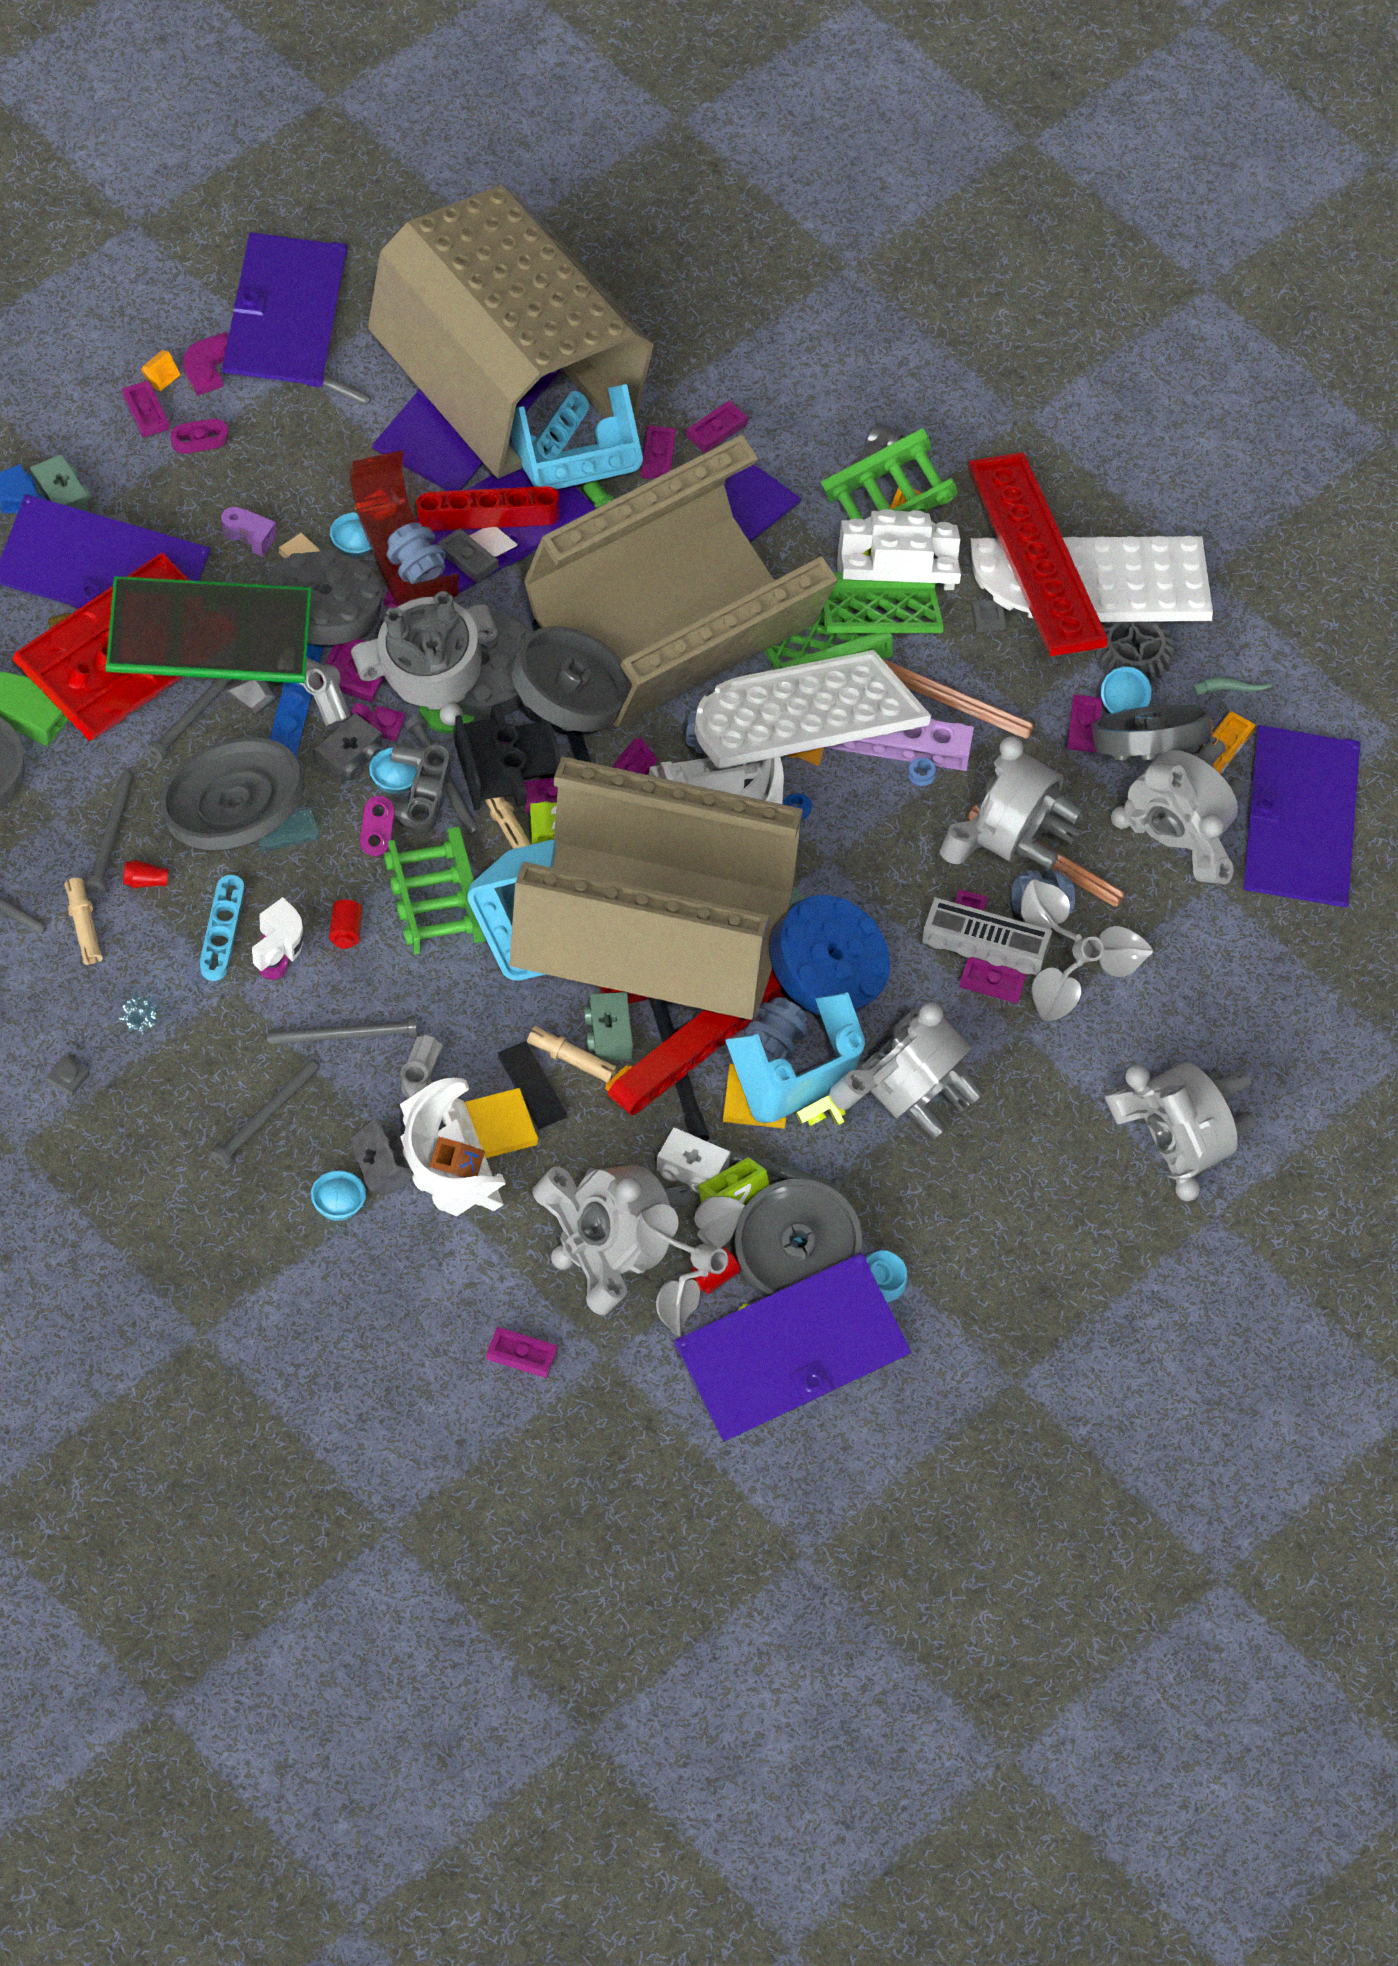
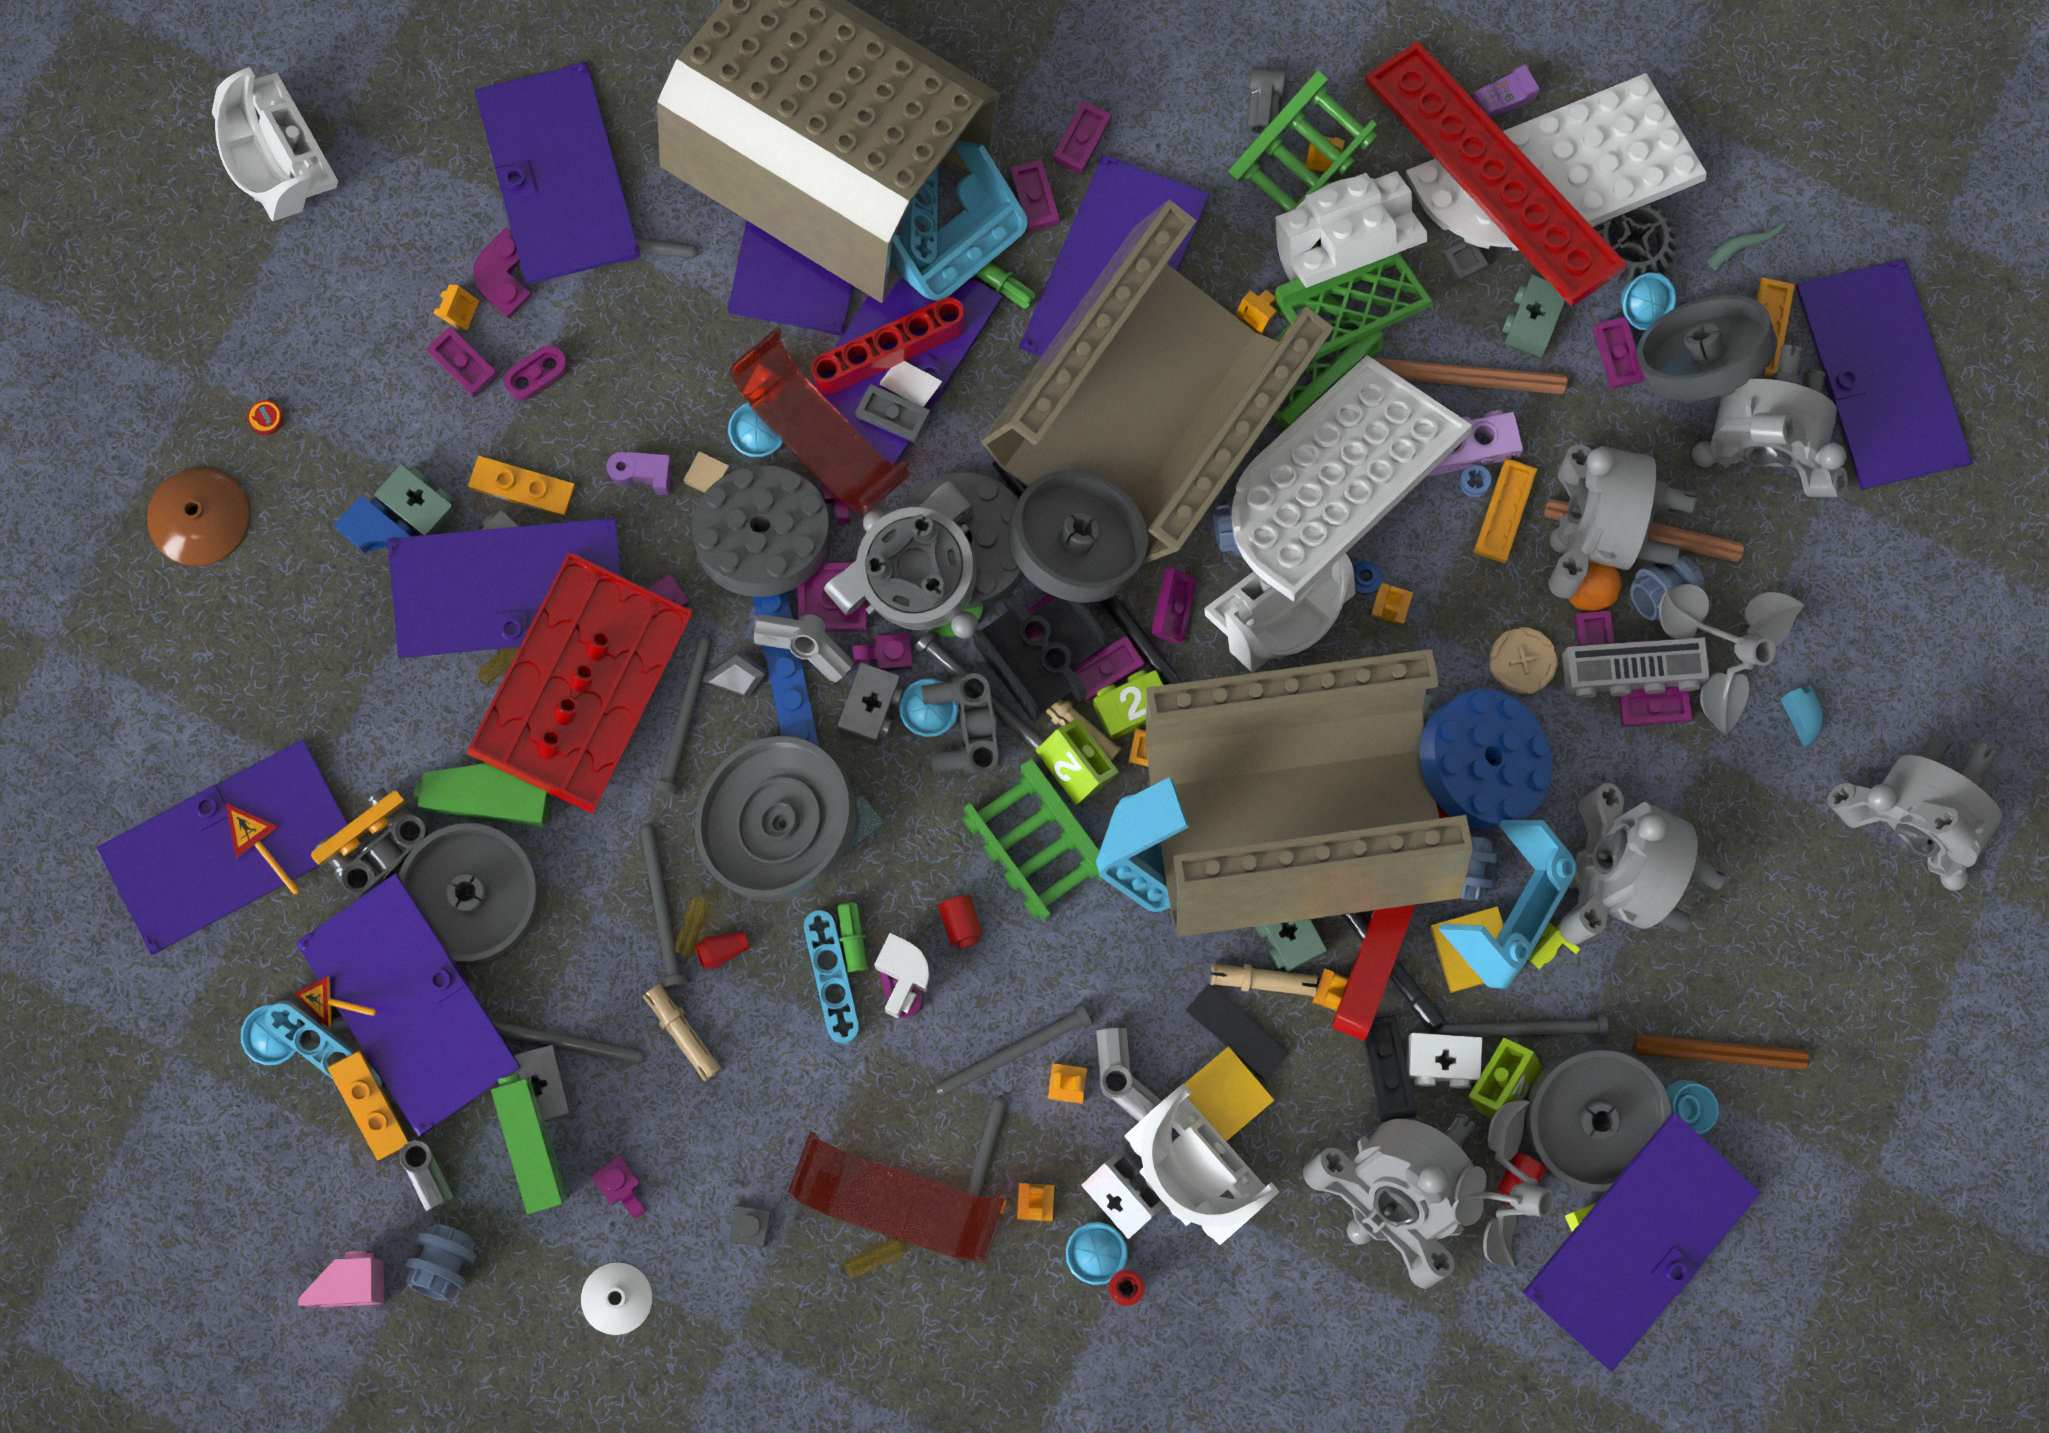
camera: 20 degrees left, 20 degrees up
(69, 220) = (273, 156): none -> white piece
(133, 848) = (693, 920): none -> clear yellow piece
(143, 1007) = (793, 1124): clear light blue gear -> none
(148, 508) = (521, 486): none -> light orange plate
(164, 1134) = (880, 1256): none -> clear yellow piece
(184, 1092) = (895, 1202): none -> clear red windscreen
(209, 629) = (666, 637): clear smoke door -> none
(253, 905) = (852, 937): none -> bright green axle
(307, 1143) = (1035, 1202): none -> light orange tile
(349, 1221) = (1137, 1287): none -> red cone
(375, 1070) = (1067, 1083): none -> light orange tile
(379, 826) = (943, 791): magenta plate -> none
(414, 552) = (843, 443): sand blue piece -> none
(457, 1158) = (1218, 1186): dark orange brick -> none
(491, 836) = (1077, 761): none -> lime brick
(522, 1352) = (1365, 1359): magenta plate -> none
(646, 1141) = (1389, 1070): none -> black tile
(813, 832) = (1391, 604): none -> light orange tile
(899, 911) = (1523, 661): none -> tan tile
(930, 1245) = (1721, 1052): none -> dark orange axle
(936, 800) = (1505, 510): none -> light orange plate
(983, 873) = (1598, 589): none -> orange hair
(1027, 672) = (1526, 332): none -> sand green brick
(1079, 513) = (1507, 93): none -> medium lavender leg
(1118, 1029) = (1804, 713): none -> medium azure brick

